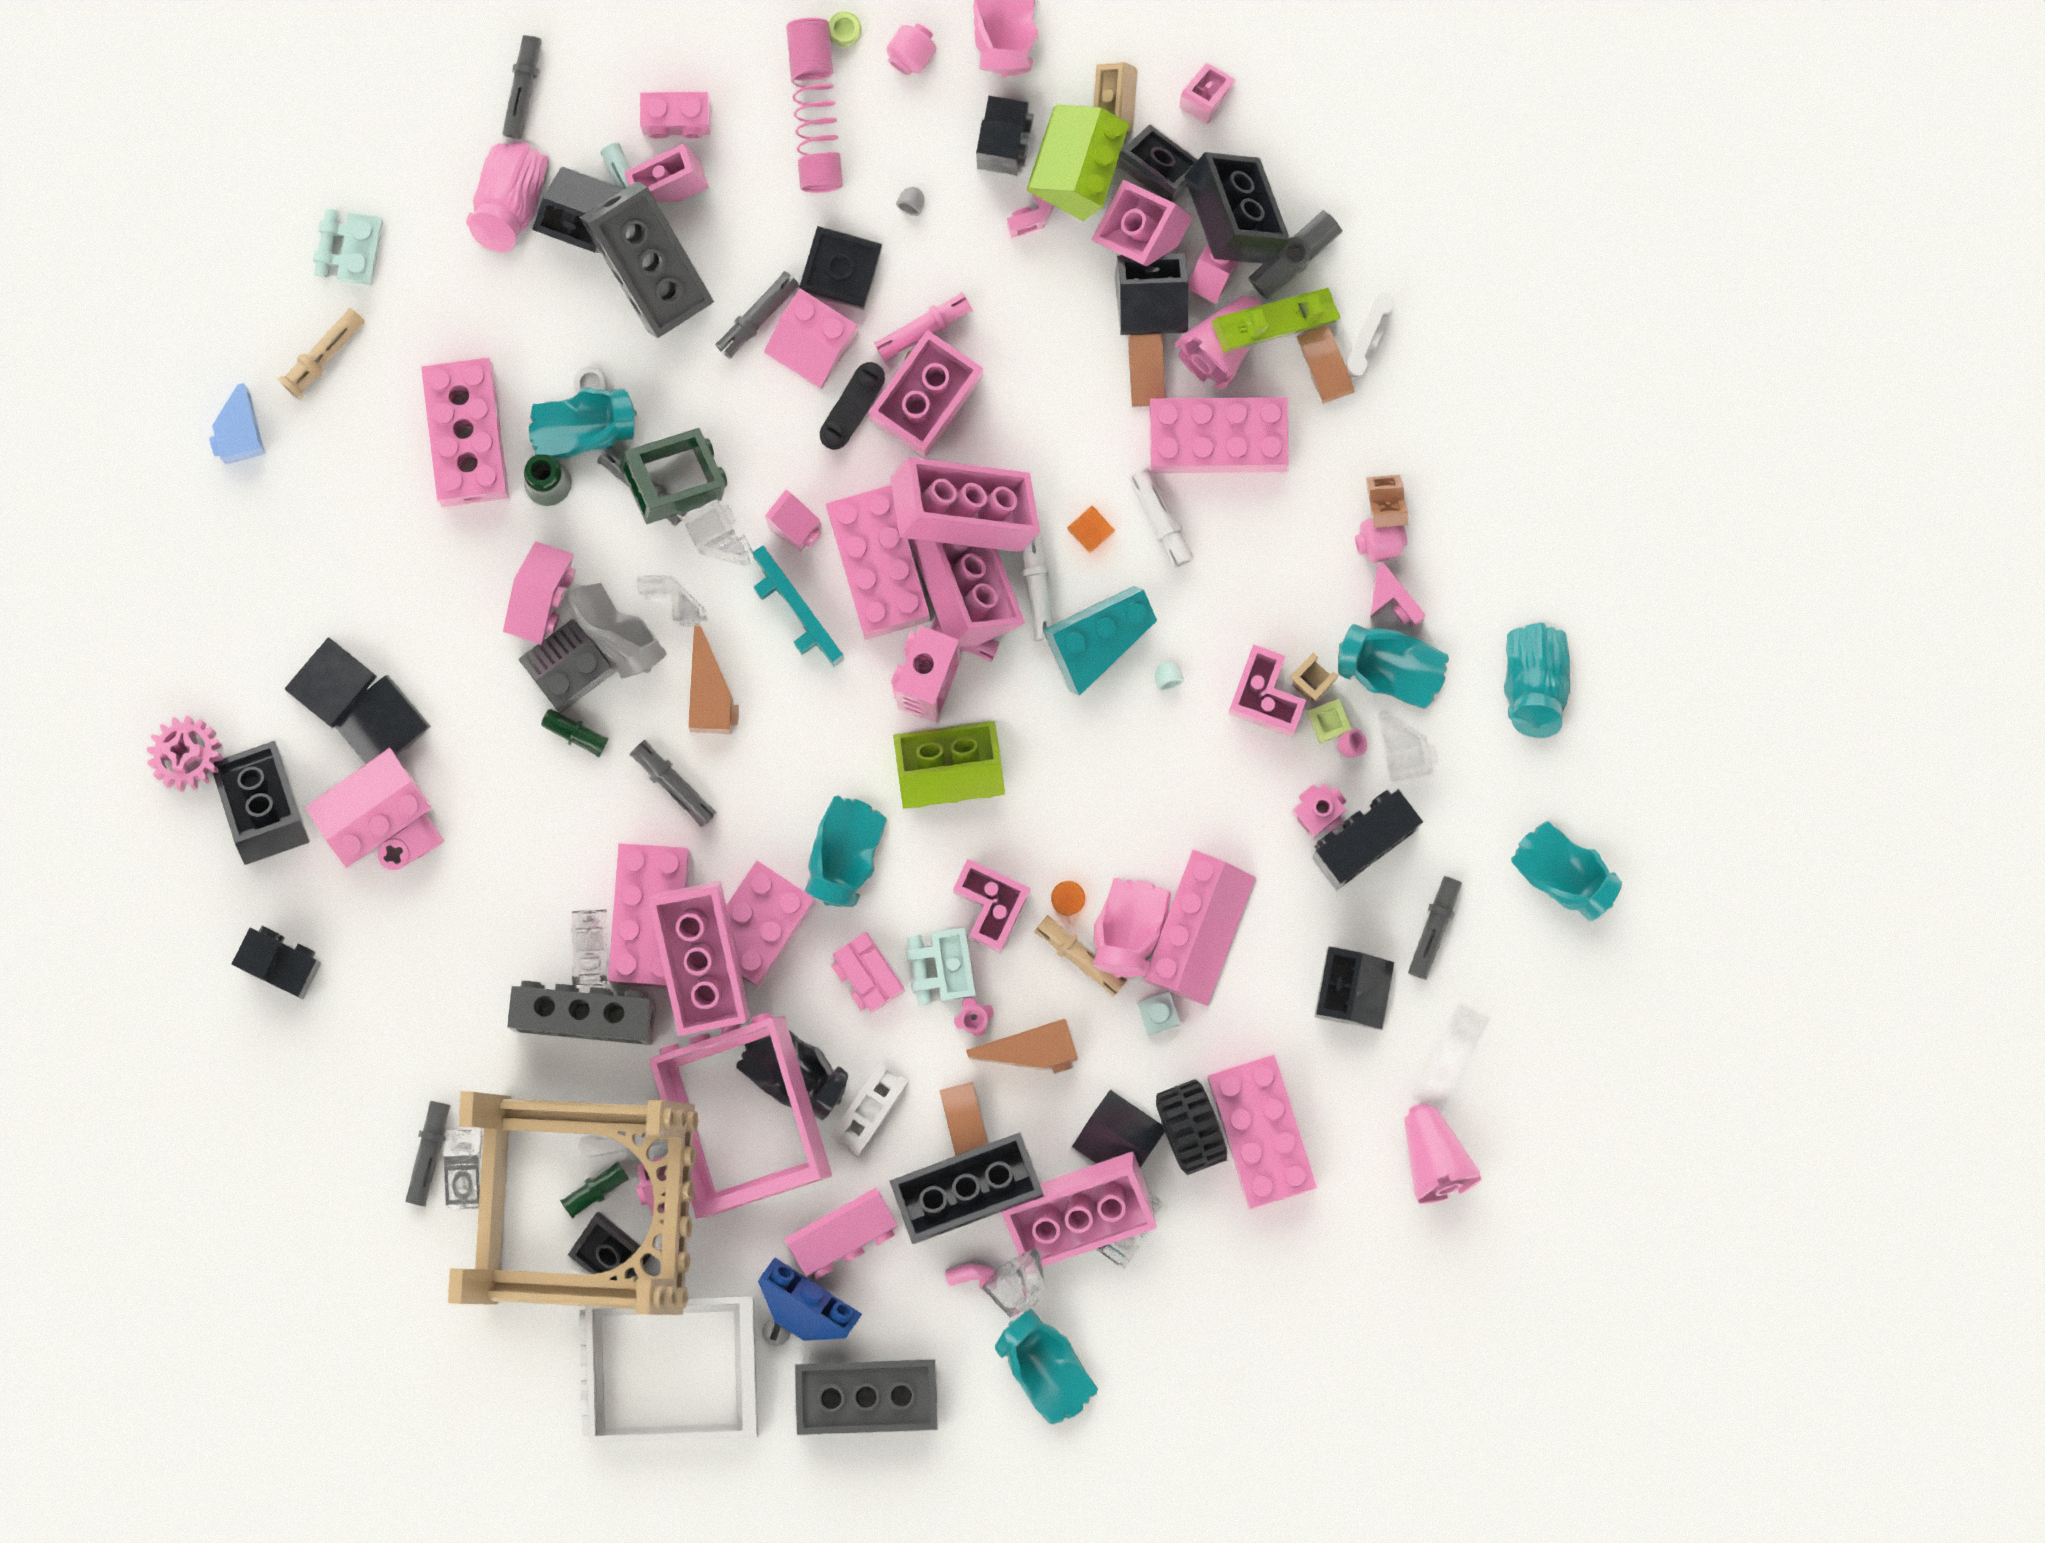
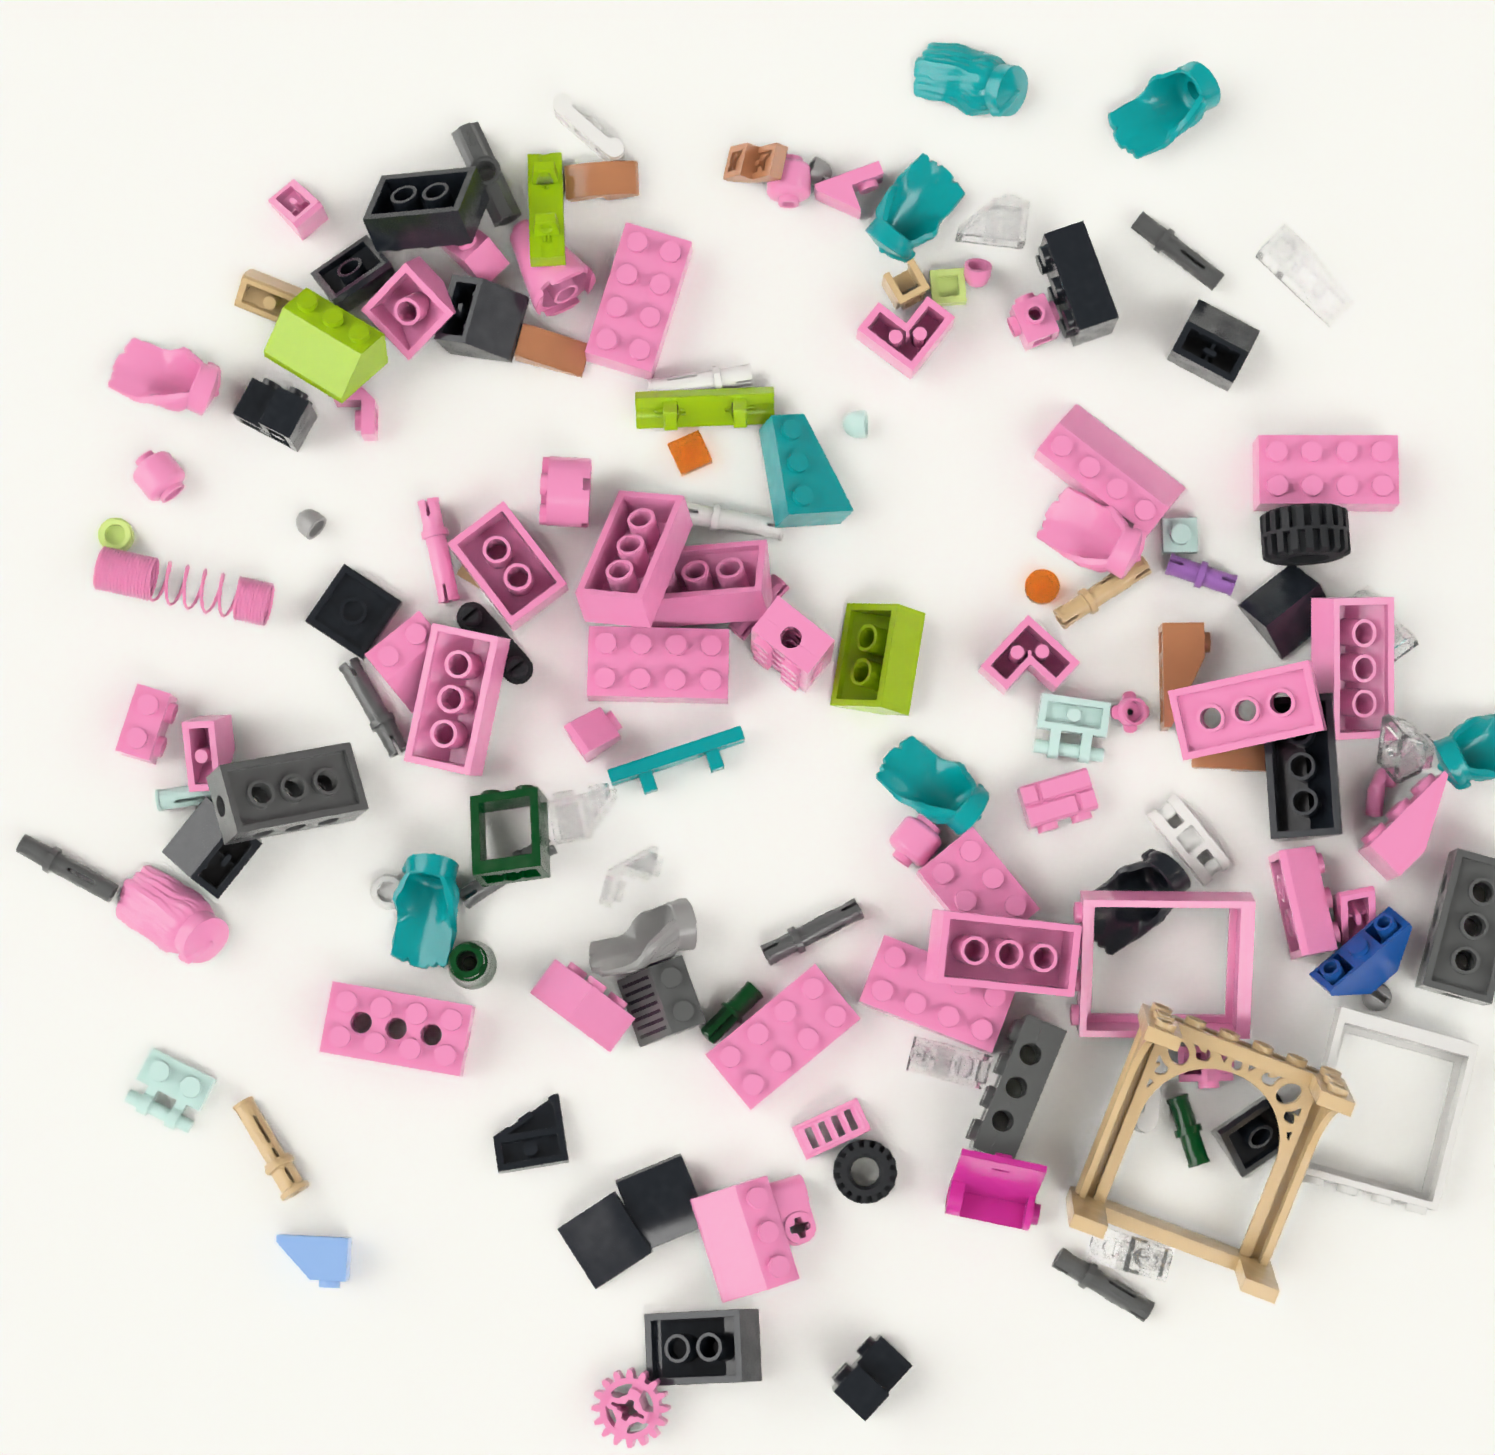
camera: 75 degrees left, 0 degrees up
(402, 589) = (533, 1140): none -> black wing
(465, 922) = (884, 1182): none -> black tyre
(481, 1023) = (995, 1189): none -> dark pink door
(515, 878) = (859, 1117): none -> bright pink slope
(565, 785) = (782, 1036): none -> bright pink brick
(710, 699) = (736, 868): nougat slope -> none
(784, 387) = (457, 700): none -> bright pink slope
(787, 852) = (915, 841): none -> bright pink head
(848, 1283) = (1354, 910): none -> bright pink slope
(932, 1307) = (1404, 837): none -> bright pink slope
(977, 1112) = (1226, 696): none -> bright pink brick
(1012, 424) = (565, 491): none -> bright pink brick
(1127, 1044) = (1201, 574): none -> medium lavender pin
(1136, 528) = (704, 407): none -> lime hinge
(1401, 565) = (819, 169): none -> light grey hinge
(1436, 1156) = (1396, 316): bright pink cone -> none

